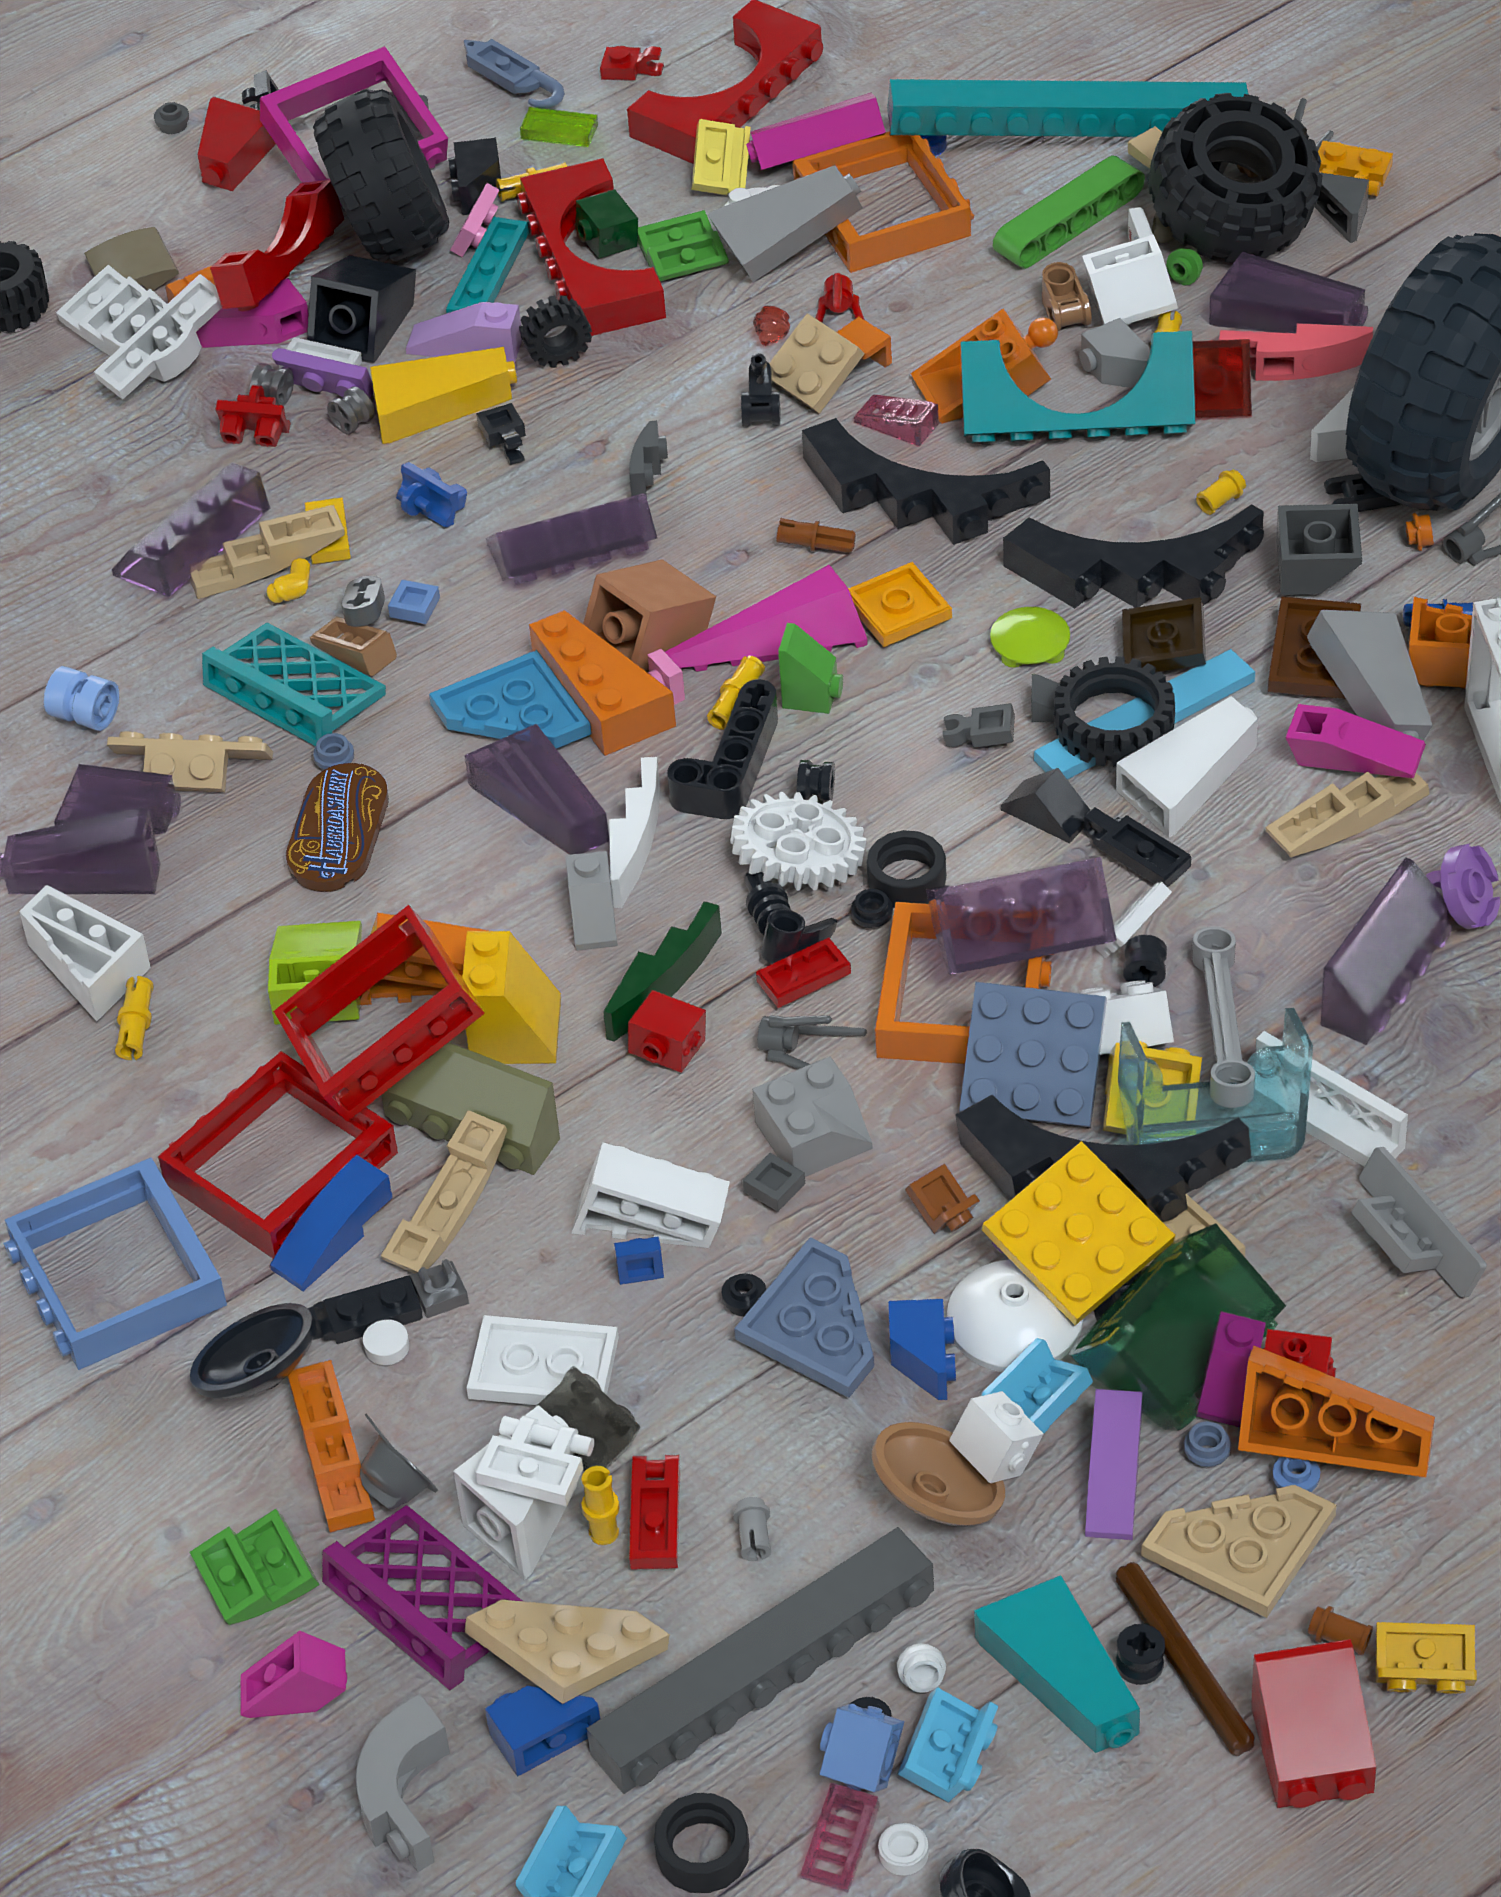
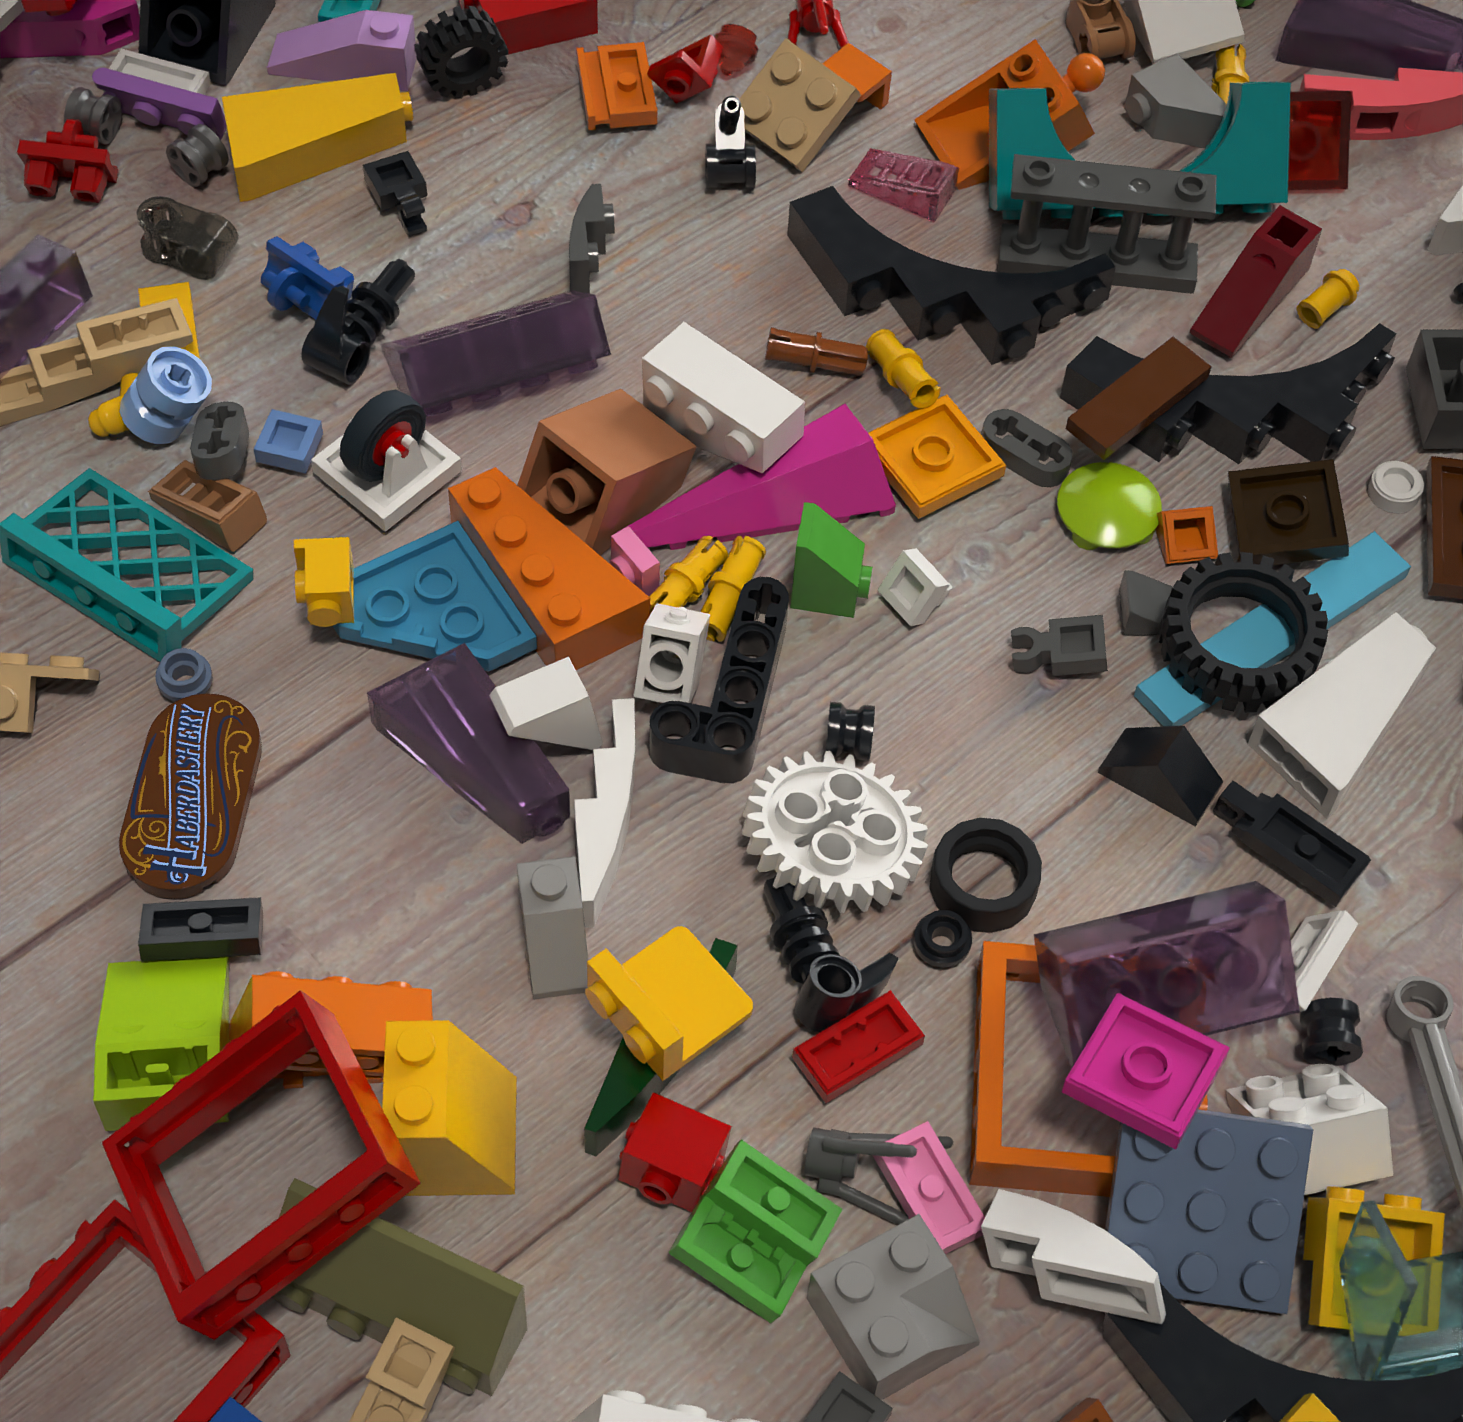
camera: 10 degrees left, 10 degrees up
(323, 569) = (165, 395): none -> light blue wheel
(342, 468) = (187, 241): none -> clear smoke piece
(342, 904) = (201, 929): none -> black plate
(437, 684) = (325, 580): none -> yellow brick
(458, 529) = (348, 328): none -> black piece
(485, 608) = (387, 459): none -> plate
(595, 761) = (548, 707): none -> white slope
(664, 932) = (667, 1000): none -> yellow bracket
(677, 354) = (616, 86): none -> orange plate
(677, 739) = (671, 654): none -> white head
(702, 688) = (686, 579): none -> yellow pin
(718, 1074) = (755, 1231): none -> bright green slope
(732, 342) = (688, 69): none -> red bracket
(733, 561) = (720, 400): none -> white wedge
(848, 1050) = (933, 1189): none -> bright pink plate
(874, 689) = (914, 587): none -> white tile
(879, 544) = (903, 368): none -> yellow pin
(932, 1082) = (1070, 1258): none -> white slope
(971, 598) = (1027, 447): none -> dark grey beam
(990, 960) = (1146, 1070): none -> dark pink plate
(1053, 556) = (1138, 398): none -> reddish brown tile
(1067, 469) = (1085, 185): none -> dark grey fence
(1085, 648) = (1187, 534): none -> orange slope
(1164, 478) = (1258, 280): none -> dark red slope
(1255, 620) = (1395, 487): none -> white tile

